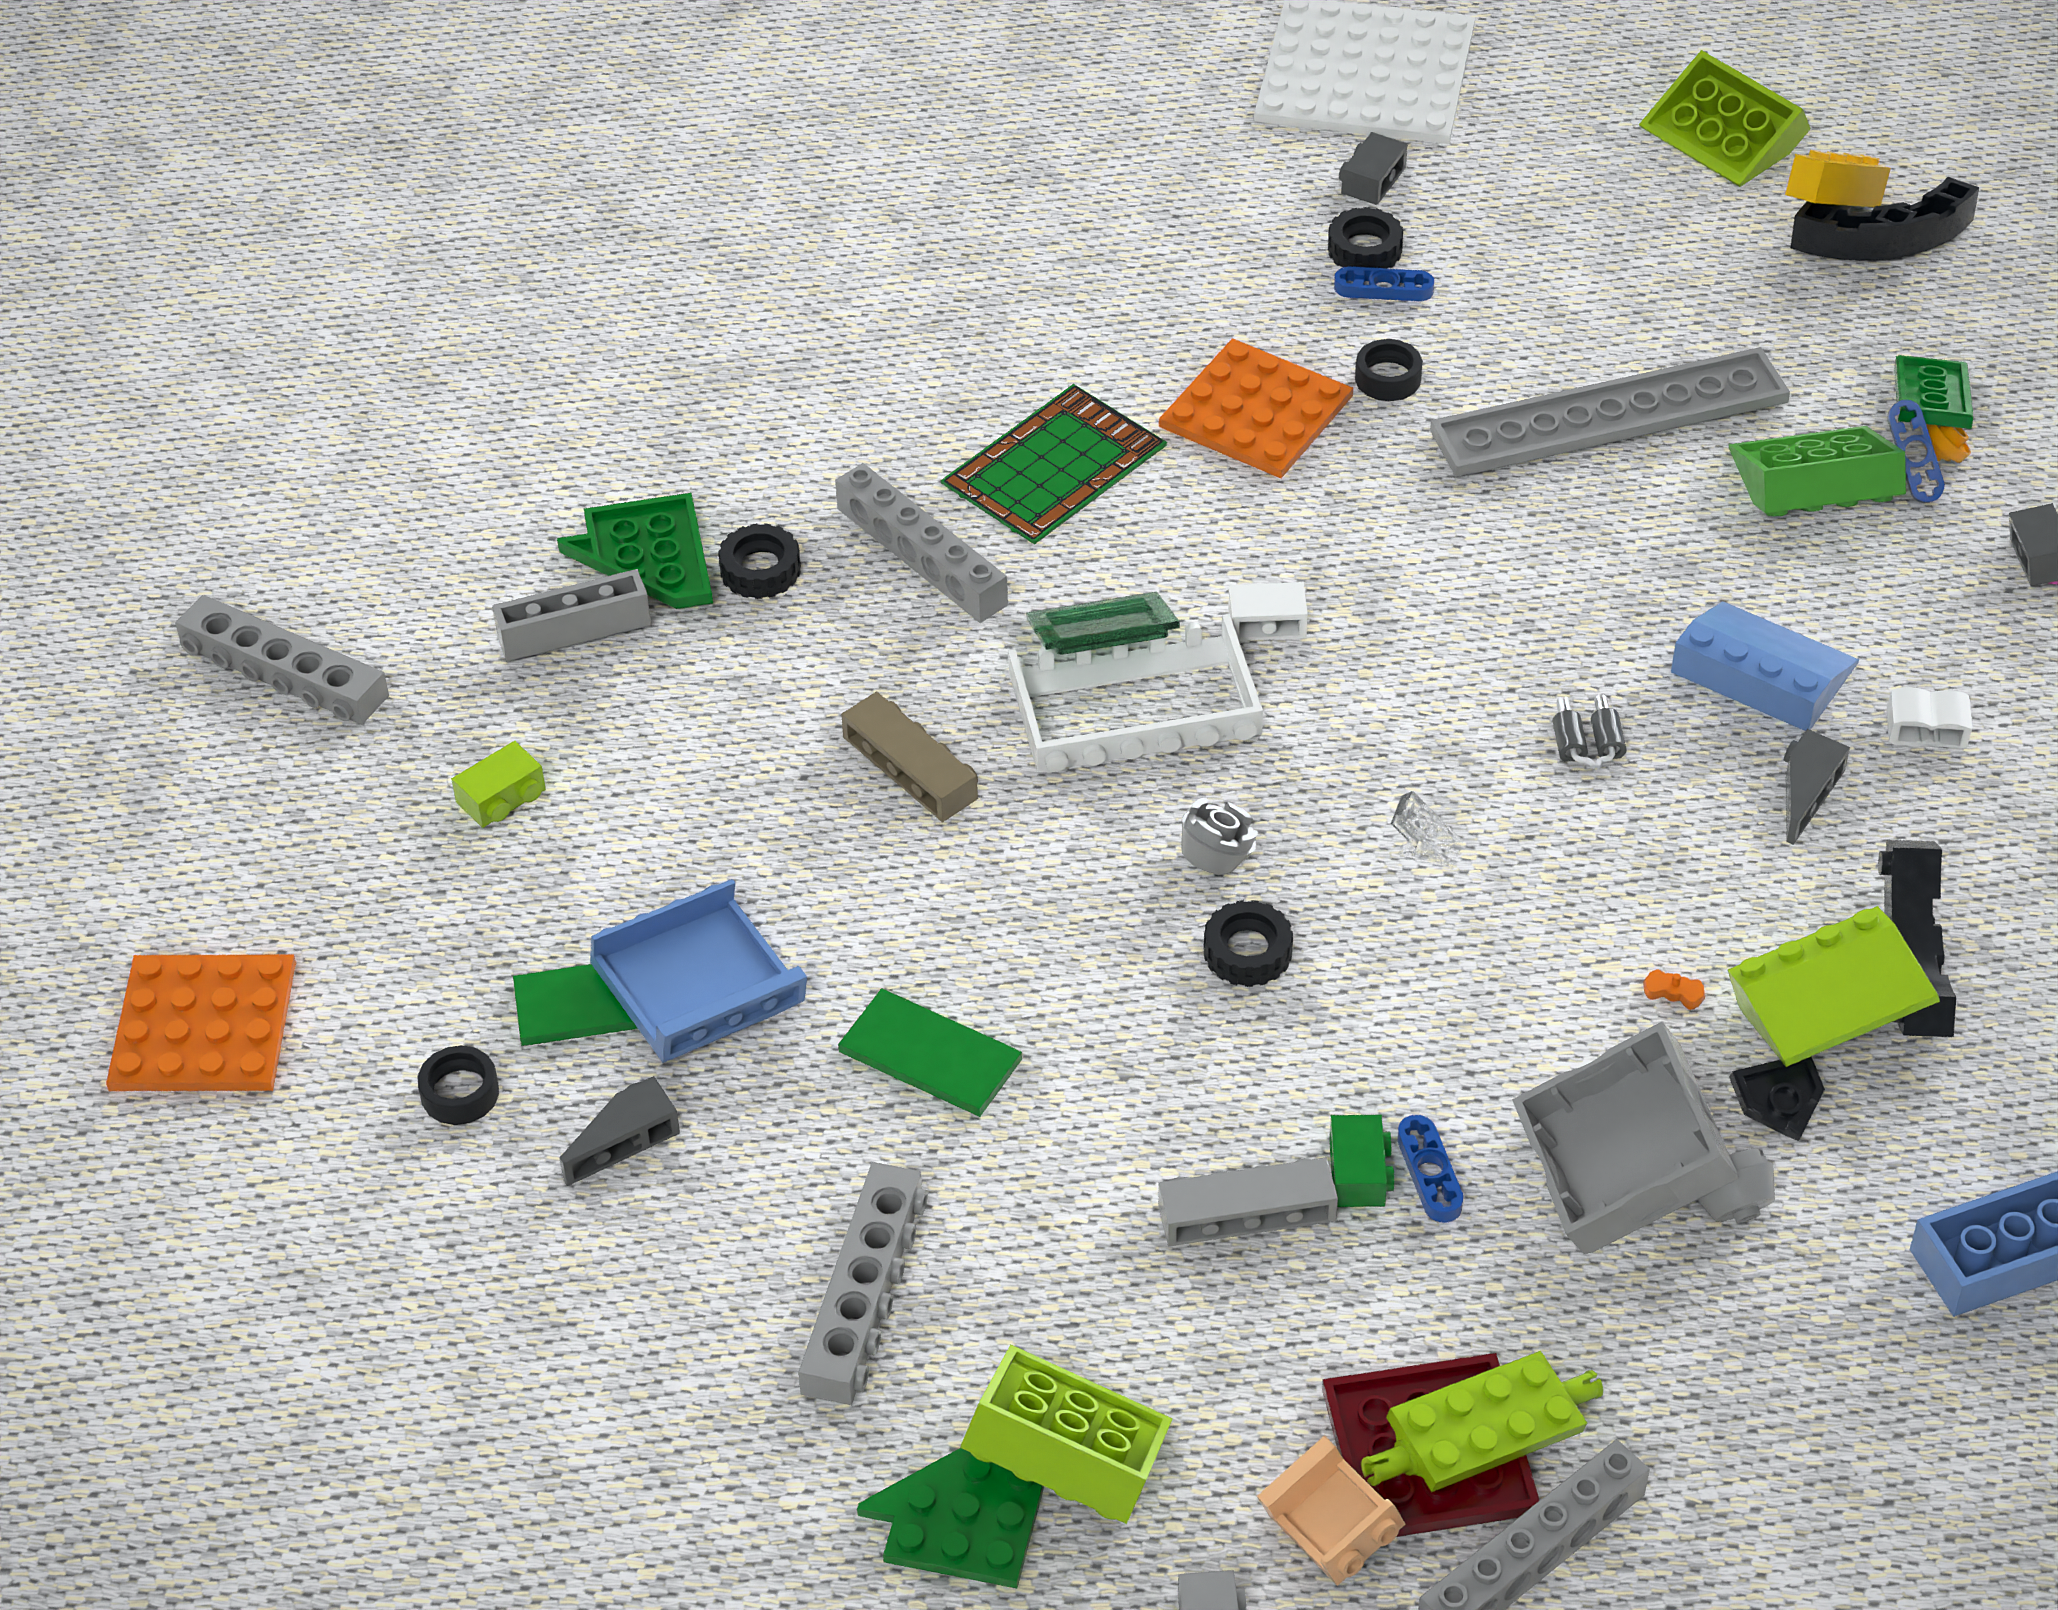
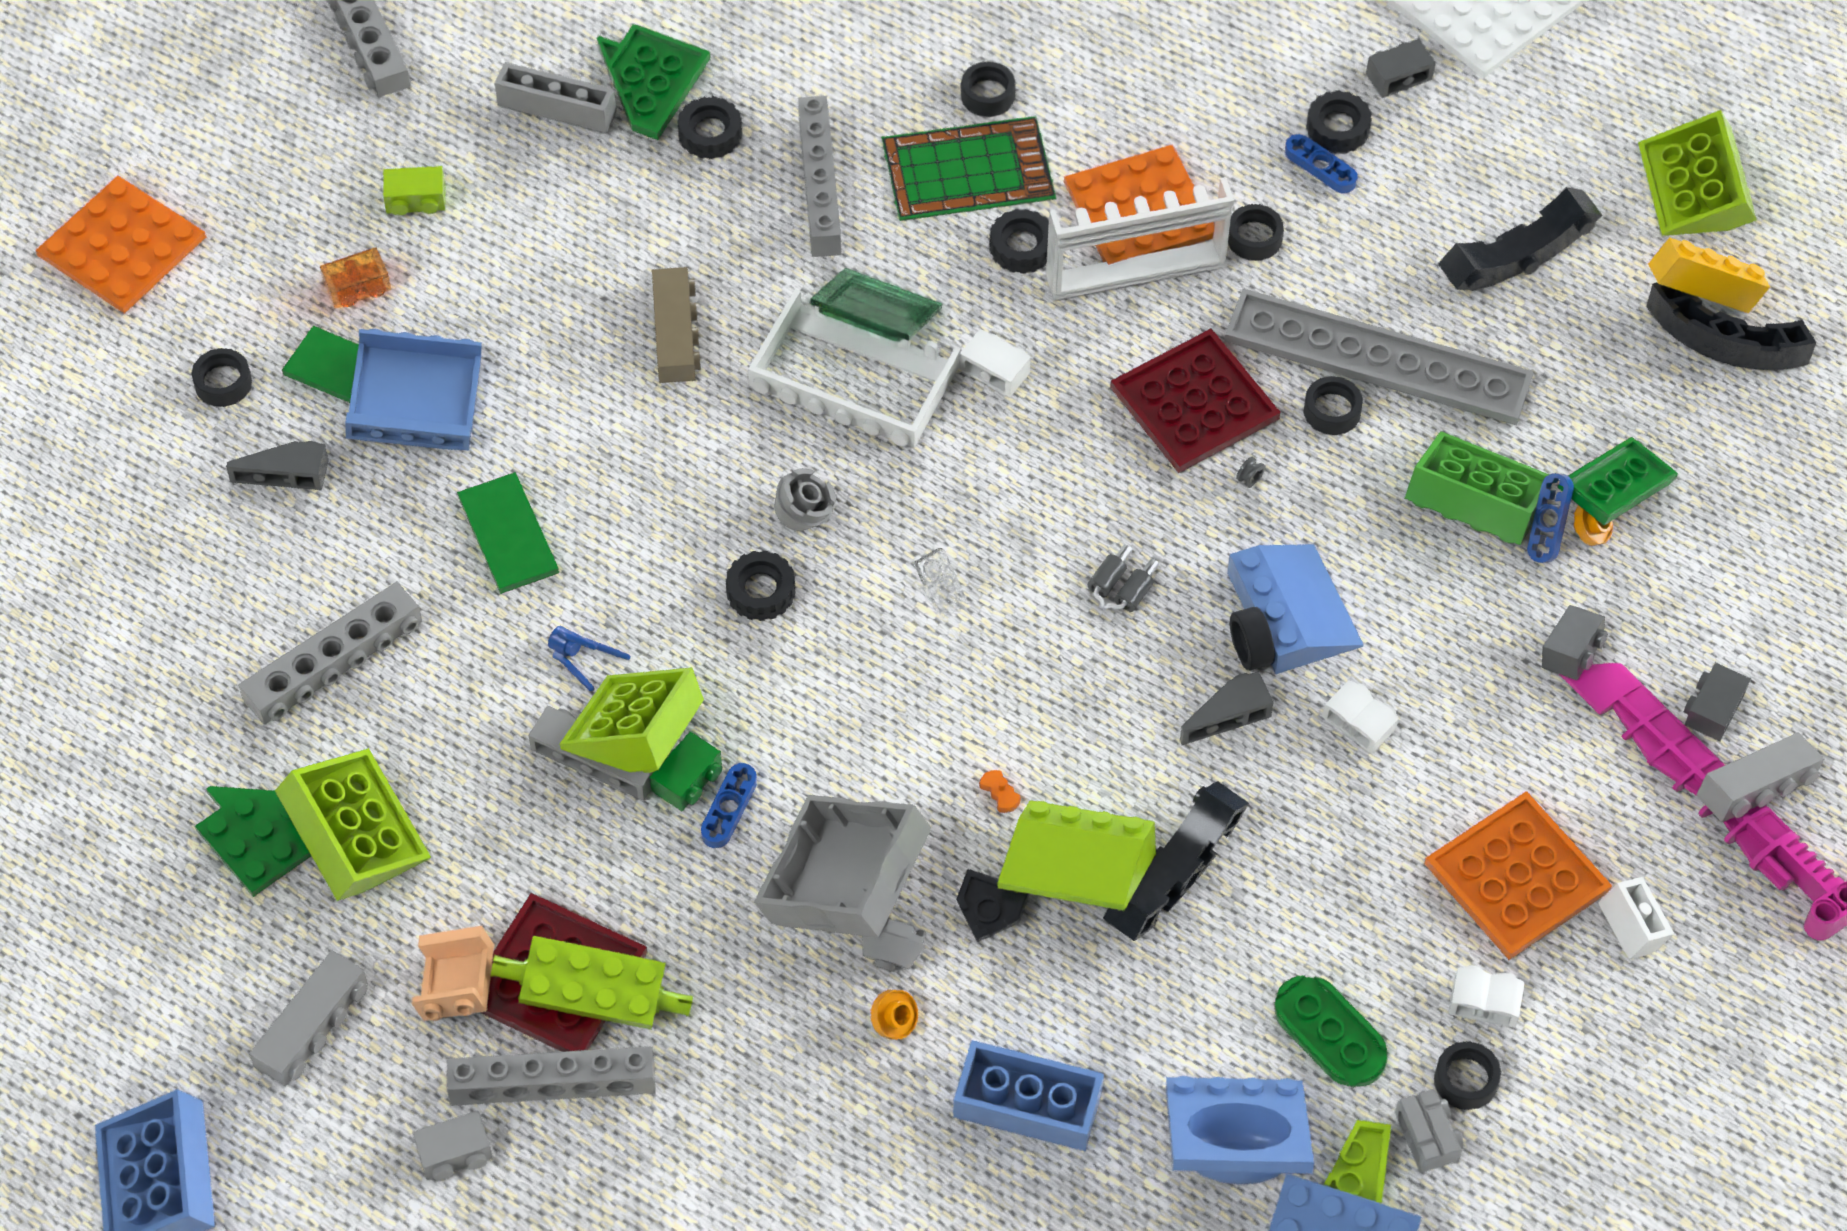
camera: 35 degrees right, 10 degrees up
(517, 903) = (355, 278): none -> clear orange brick
(1006, 400) = (982, 105): none -> black tyre
(1105, 1115) = (569, 643): none -> blue plant
(1178, 514) = (1019, 221): none -> black tyre
(1261, 498) = (1143, 267): none -> white window
(1265, 1136) = (635, 719): none -> lime slope
(1486, 540) = (1195, 400): none -> dark red plate
(1604, 570) = (1250, 472): none -> dark grey bush
(1613, 492) = (1330, 424): none -> black tyre
(1644, 251) = (1523, 247): none -> black brick
(1780, 690) = (1252, 638): none -> black tyre
(1803, 1254) = (894, 1014): none -> light orange plate

